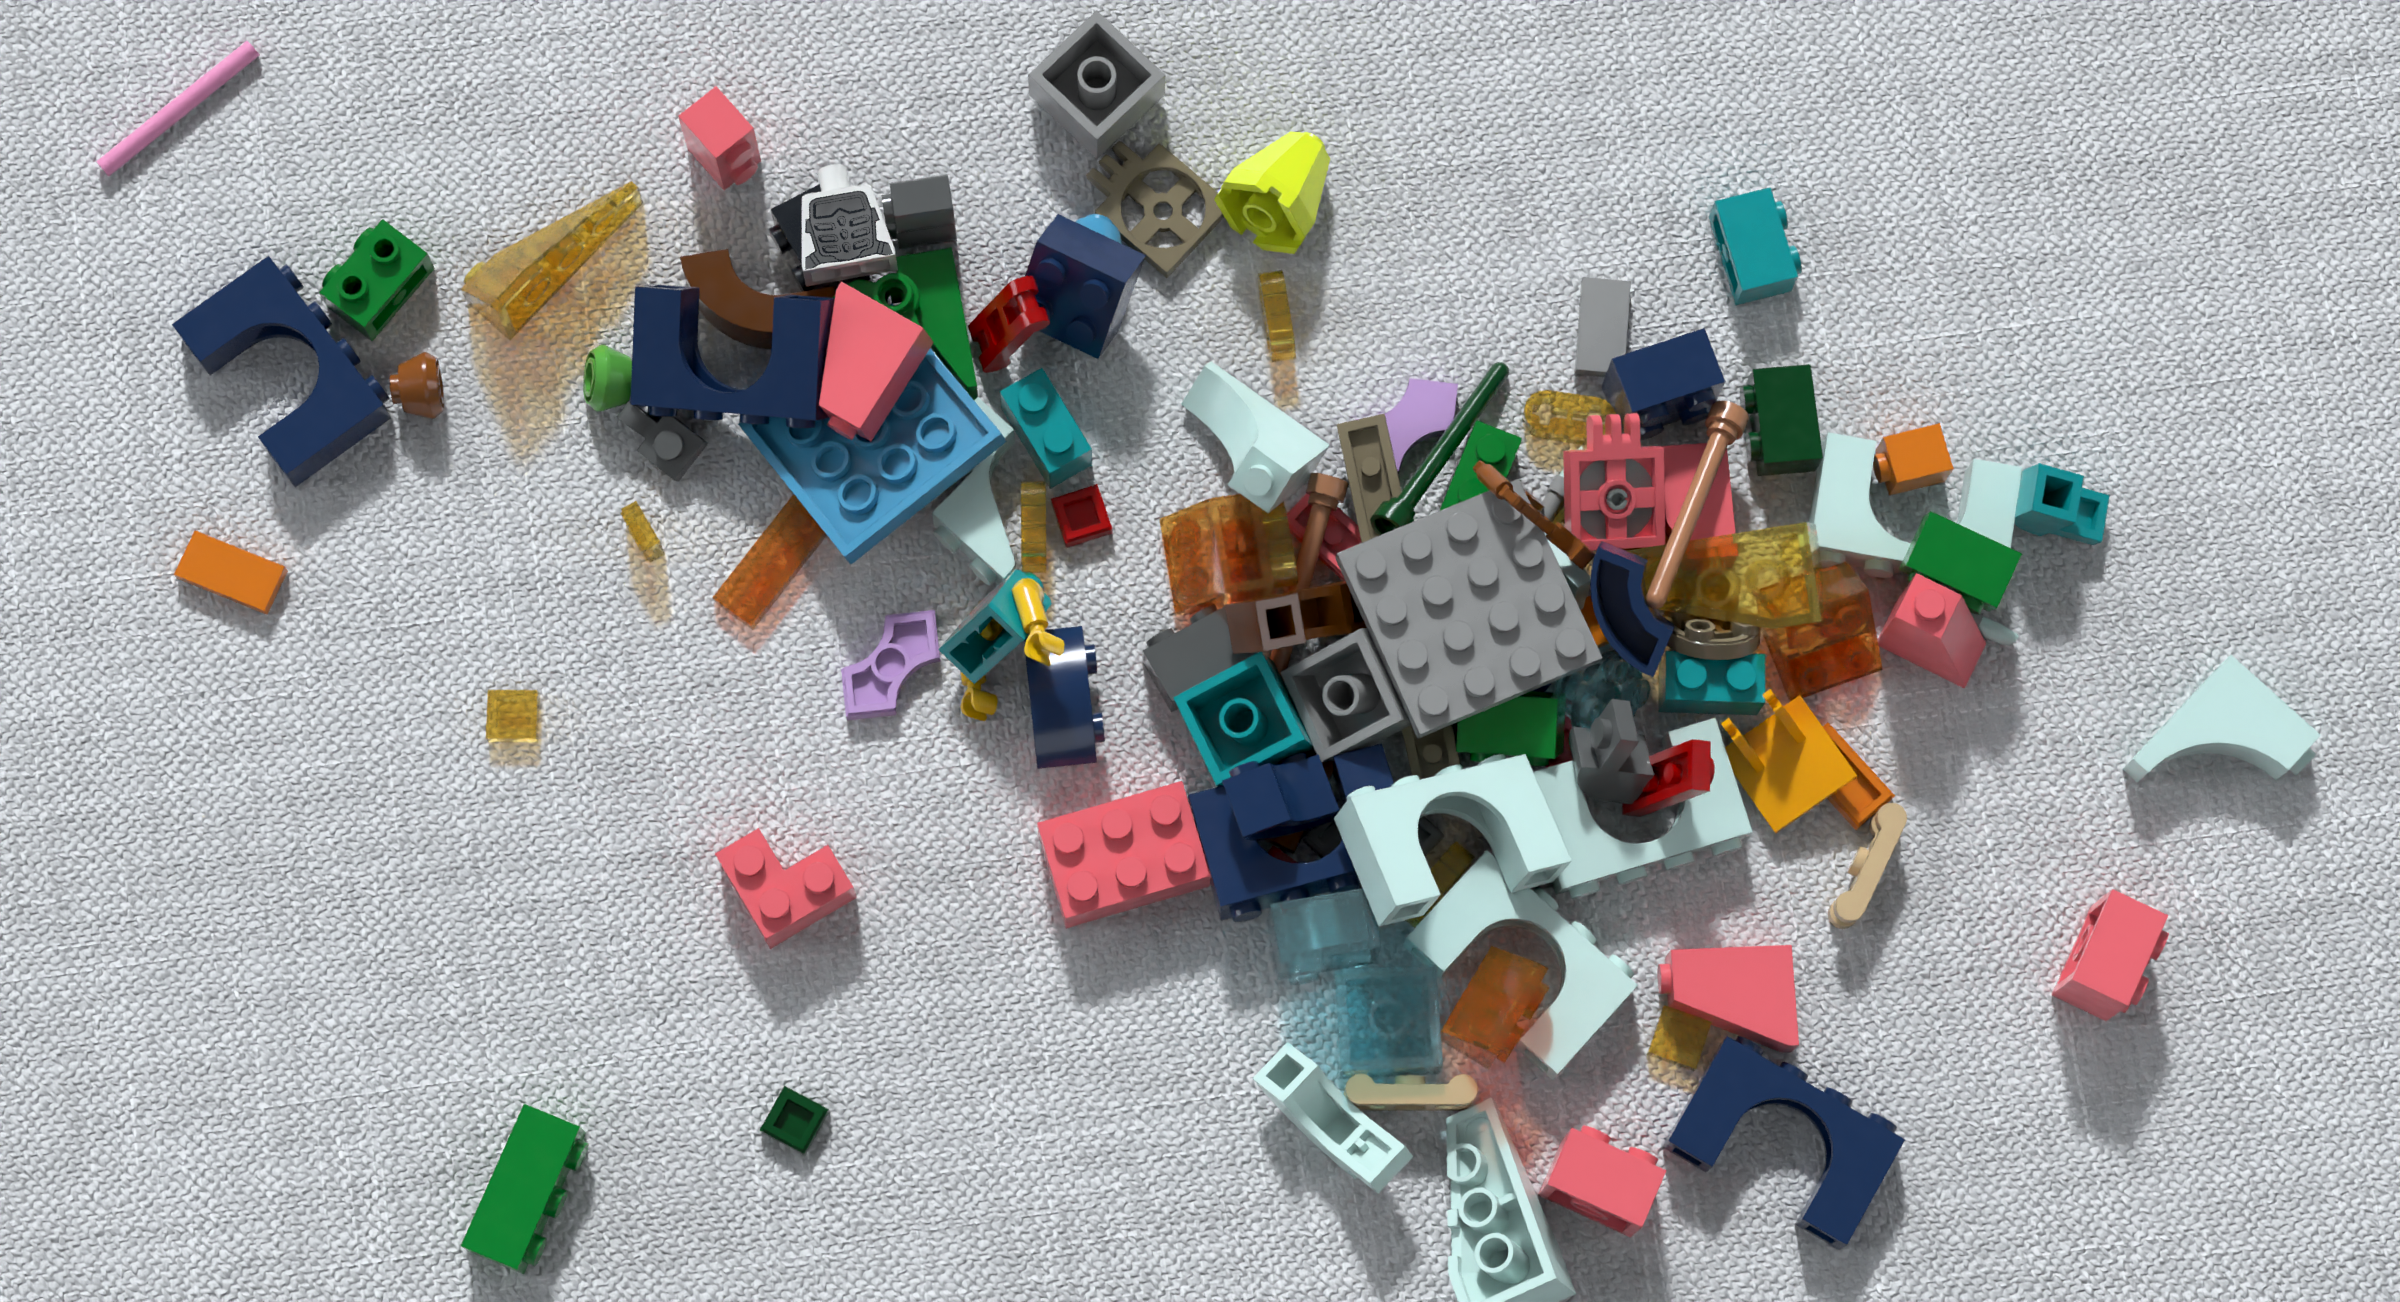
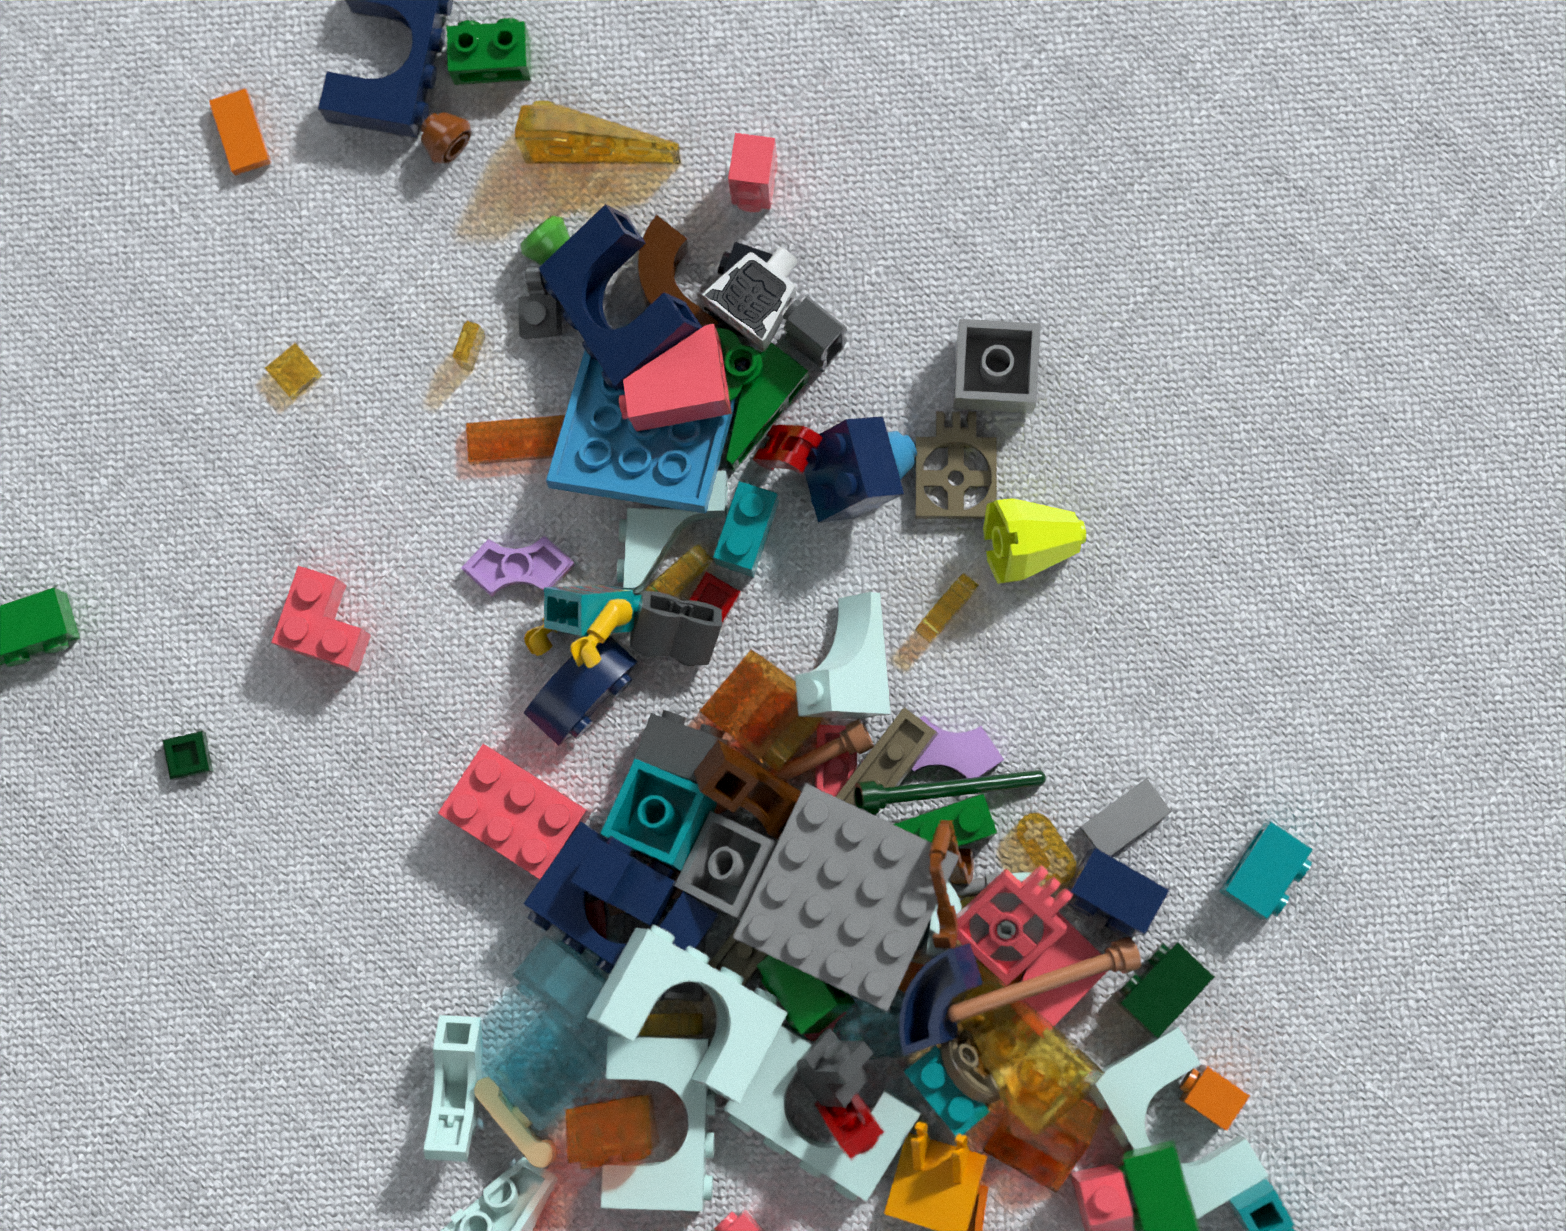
camera: 65 degrees right, 5 degrees up
(1084, 564) = (675, 628): none -> dark grey brick

